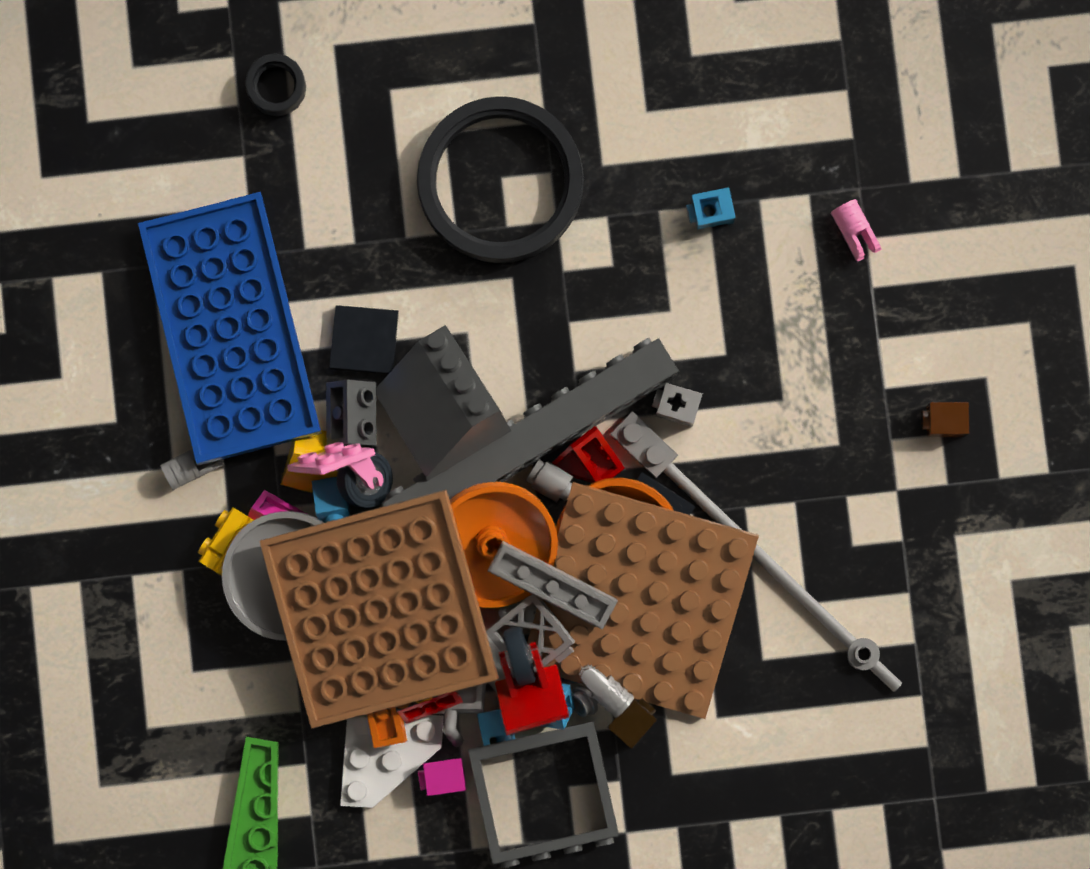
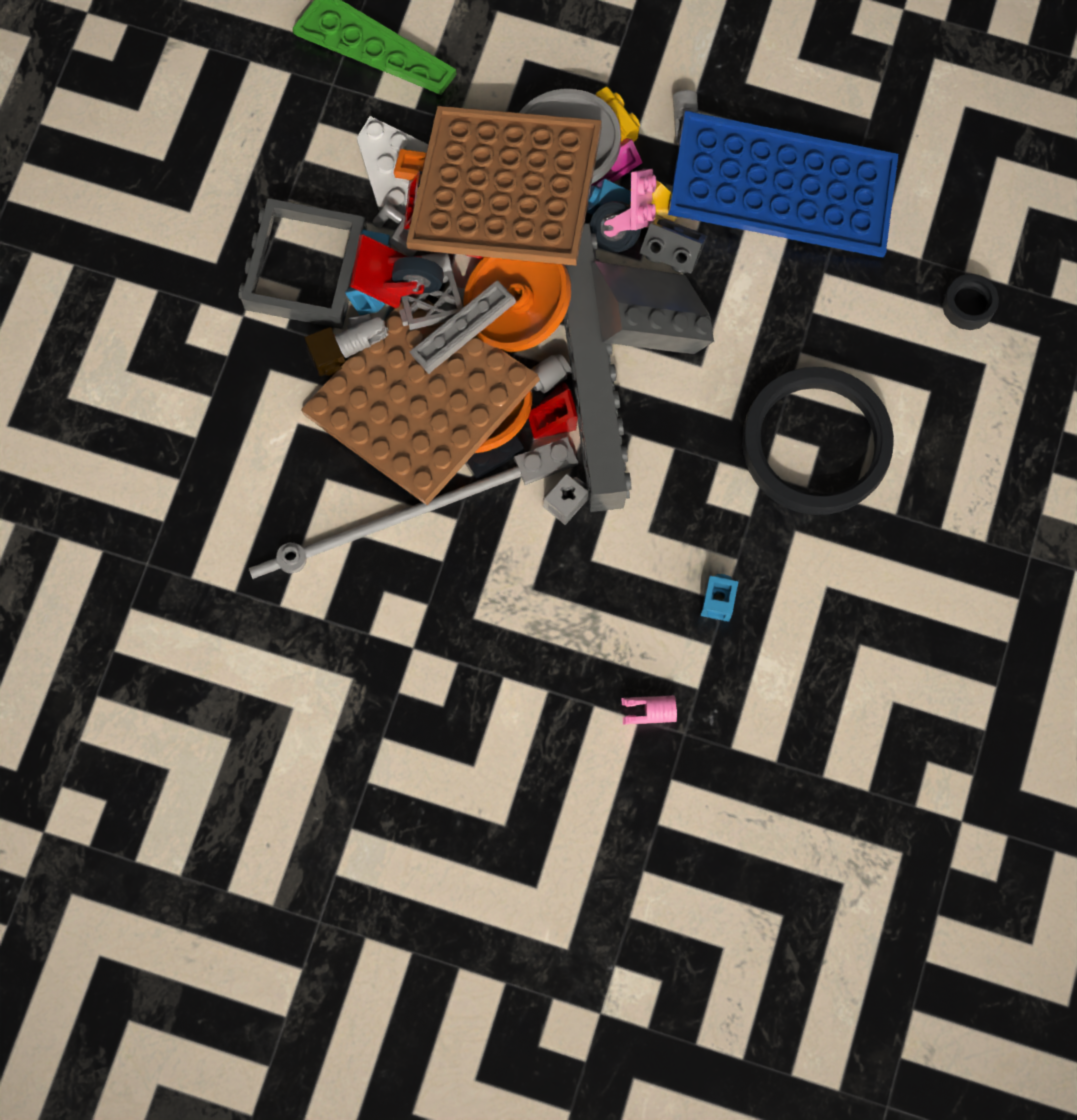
camera: 110 degrees right, 10 degrees down
(364, 339) = (730, 284): black tile -> none
(442, 777) = (354, 195): dark pink brick -> none
(946, 419) = (452, 711): reddish brown brick -> none

